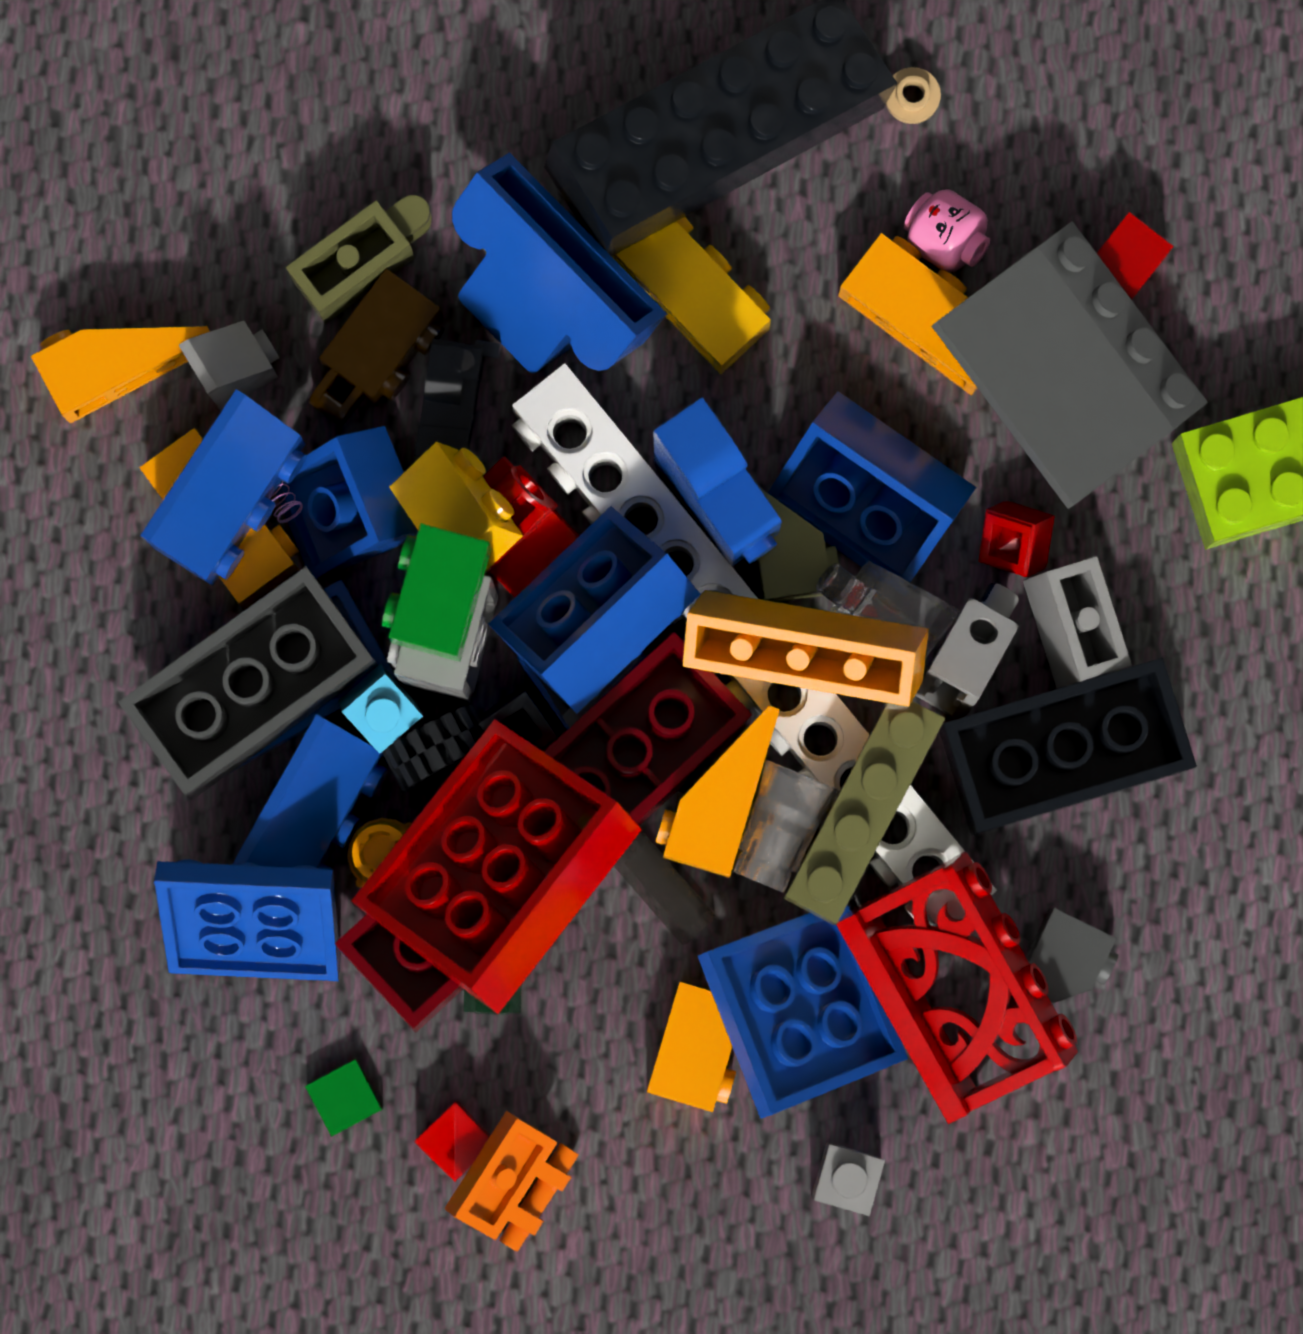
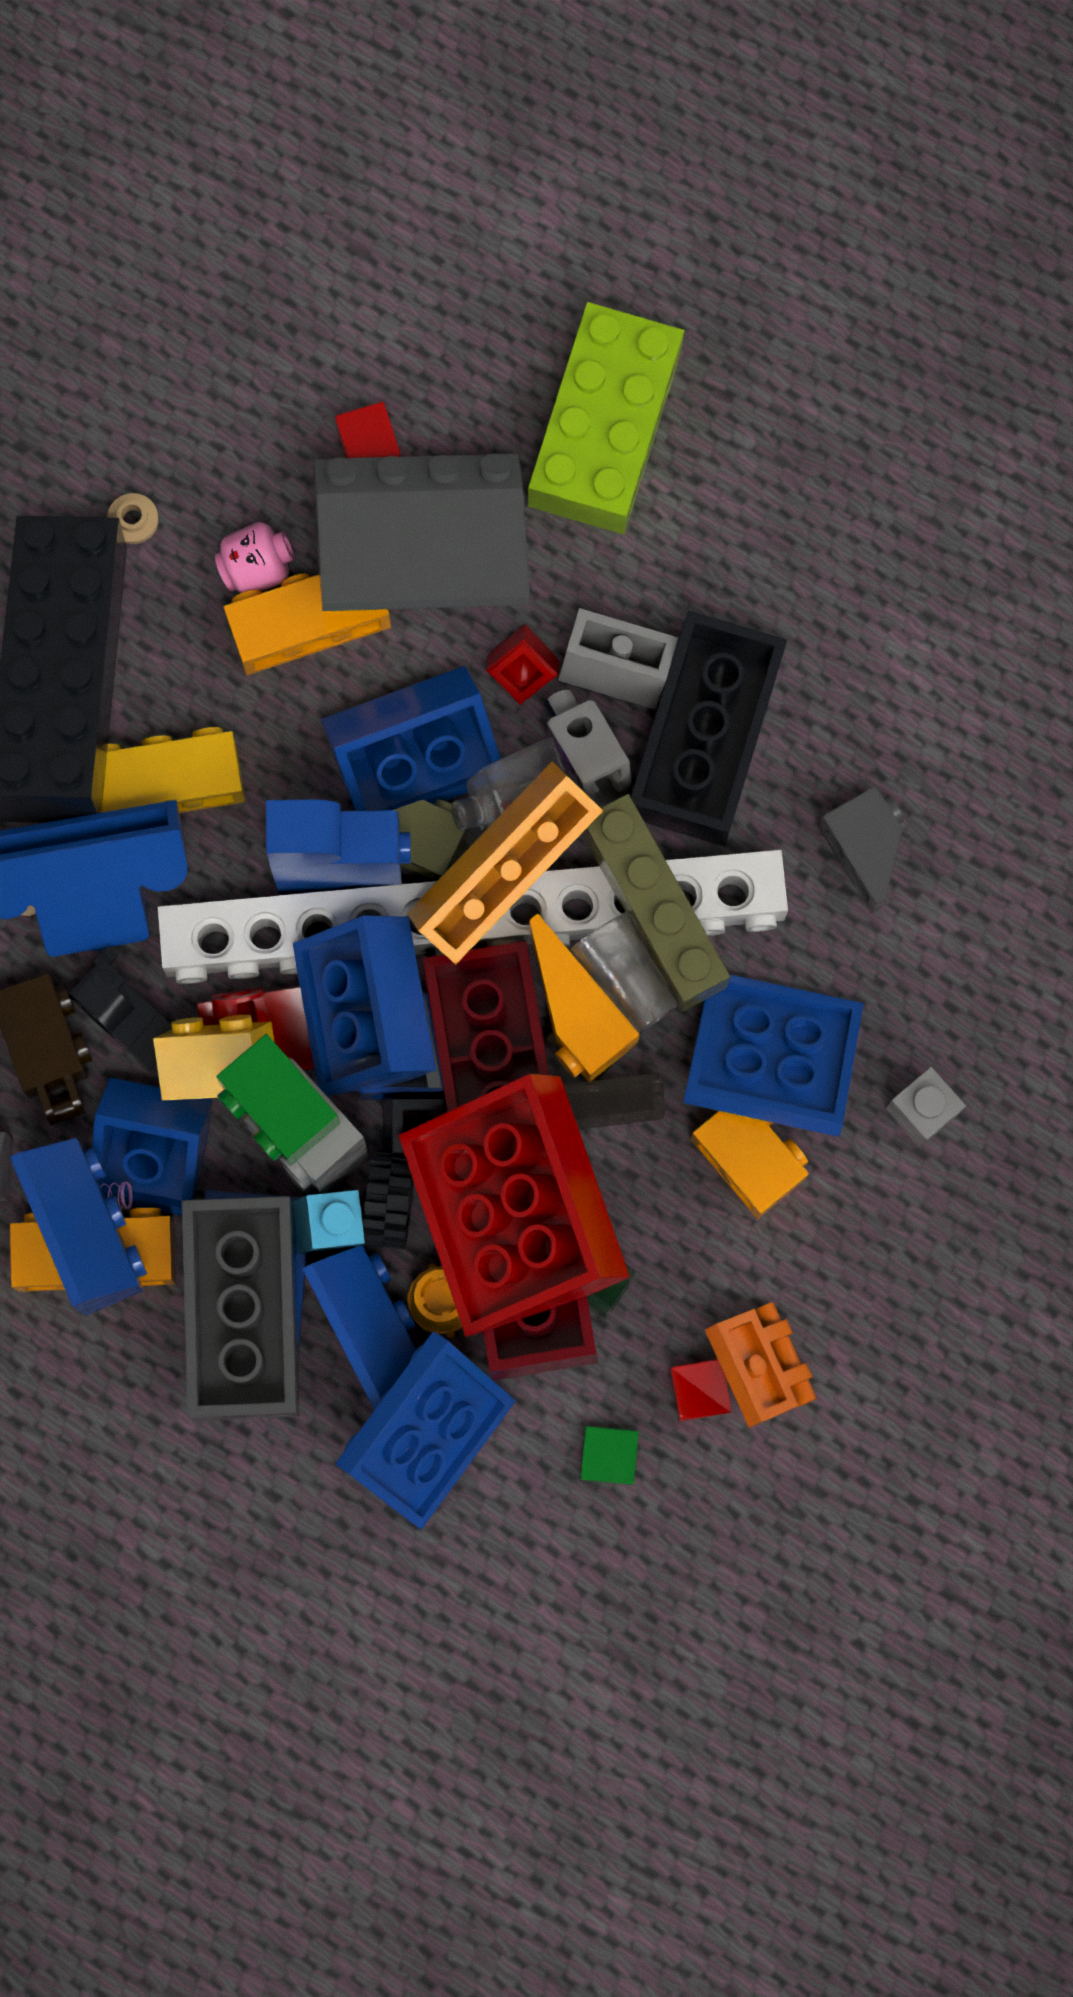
camera: 60 degrees left, 5 degrees down
(901, 994) = (888, 973): red fence -> none

